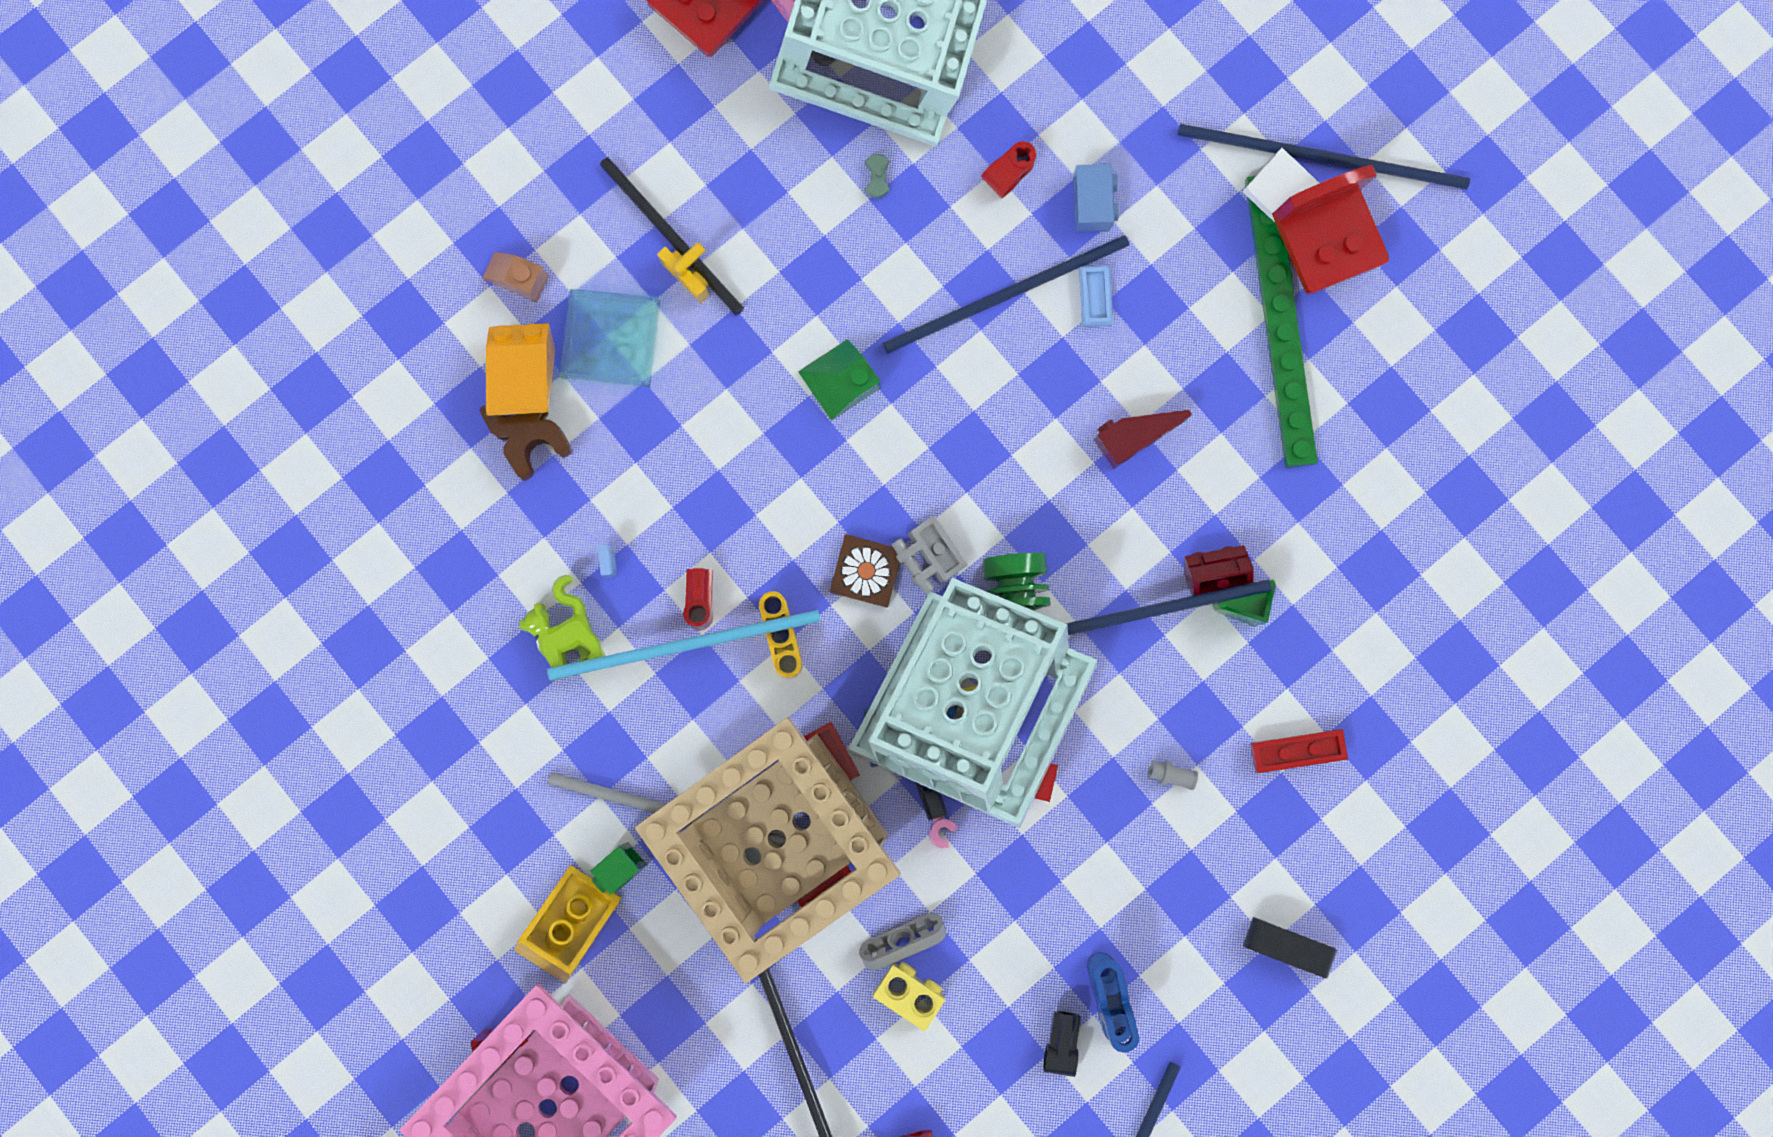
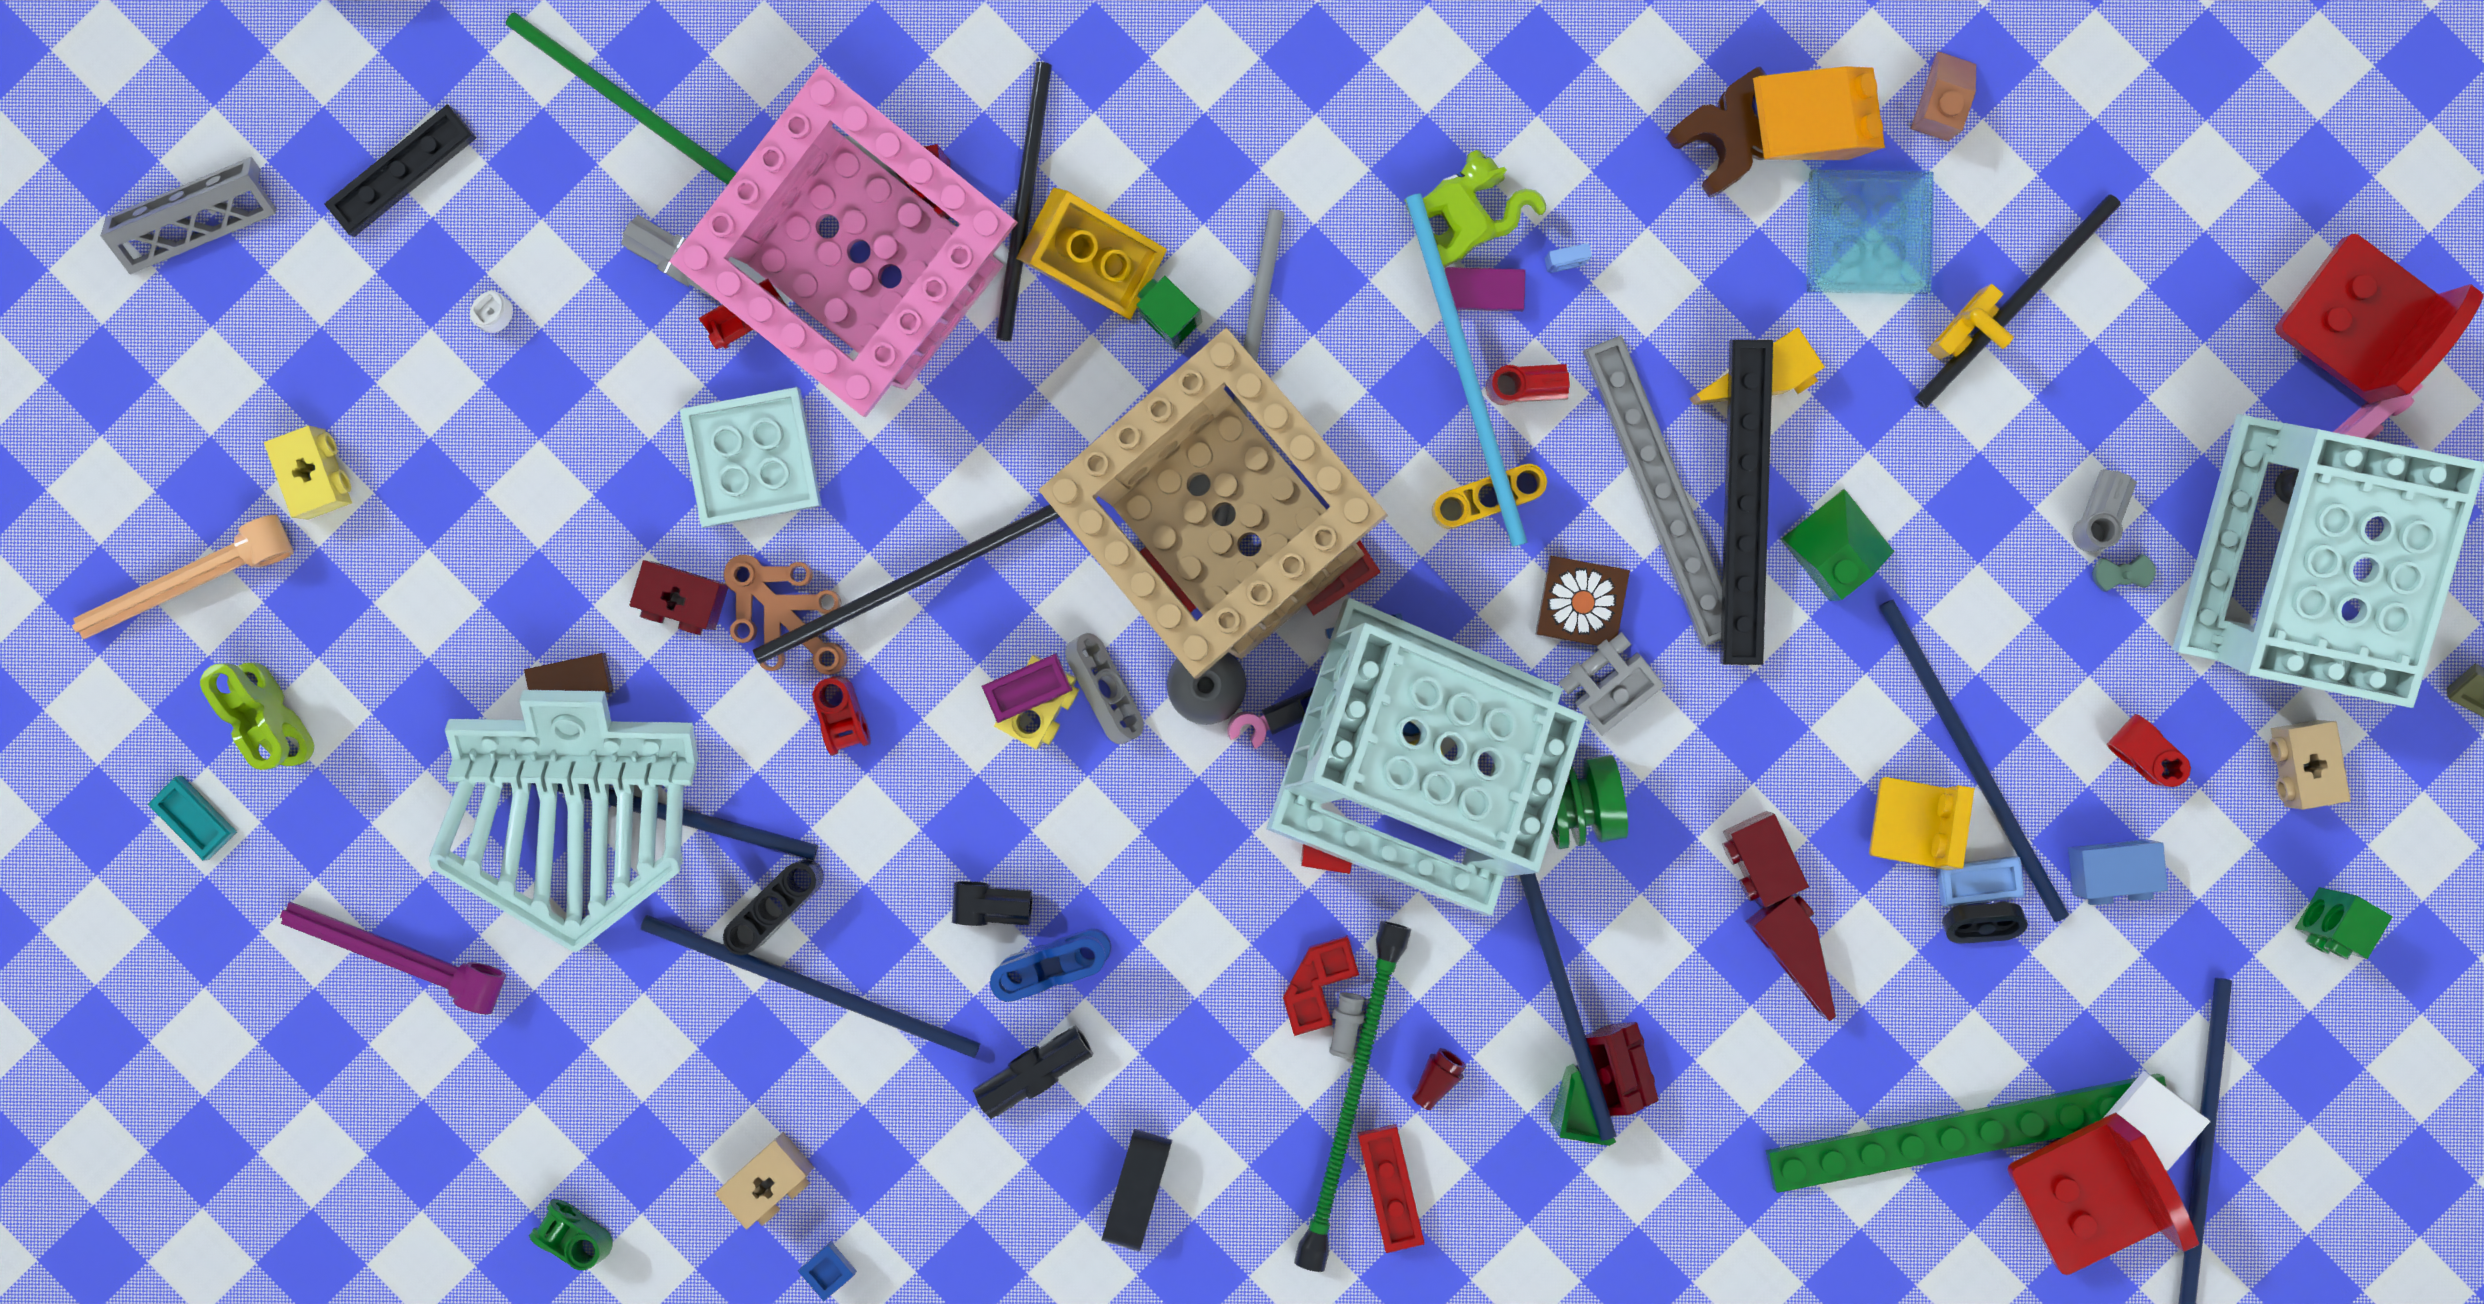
camera: 85 degrees right, 5 degrees up
(521, 973) = (1024, 200): none -> black piece
(624, 624) = (1487, 288): none -> magenta tile
(706, 418) = (1792, 368): none -> yellow slope
(787, 505) = (1658, 485): none -> light grey tile
(801, 444) = (1746, 502): none -> black tile
(829, 184) = (2106, 508): none -> light grey piece
(897, 1003) = (1027, 688): none -> magenta tile
(923, 859) = (1209, 707): none -> dark grey piece
(1041, 53) = (2324, 779): none -> tan brick
(1050, 336) = (1921, 823): none -> yellow bracket
(1068, 452) = (1764, 859): none -> dark red brick
(1126, 296) = (1984, 922): none -> black plate
(1127, 791) = (1320, 966): none -> red tile
(1144, 44) = (2342, 924): none -> green brick
(1194, 1022) = (1033, 1072): none -> black piece
(1216, 707) = (1438, 1078): none -> dark red cone
(1339, 813) = (1314, 1246): none -> green hose

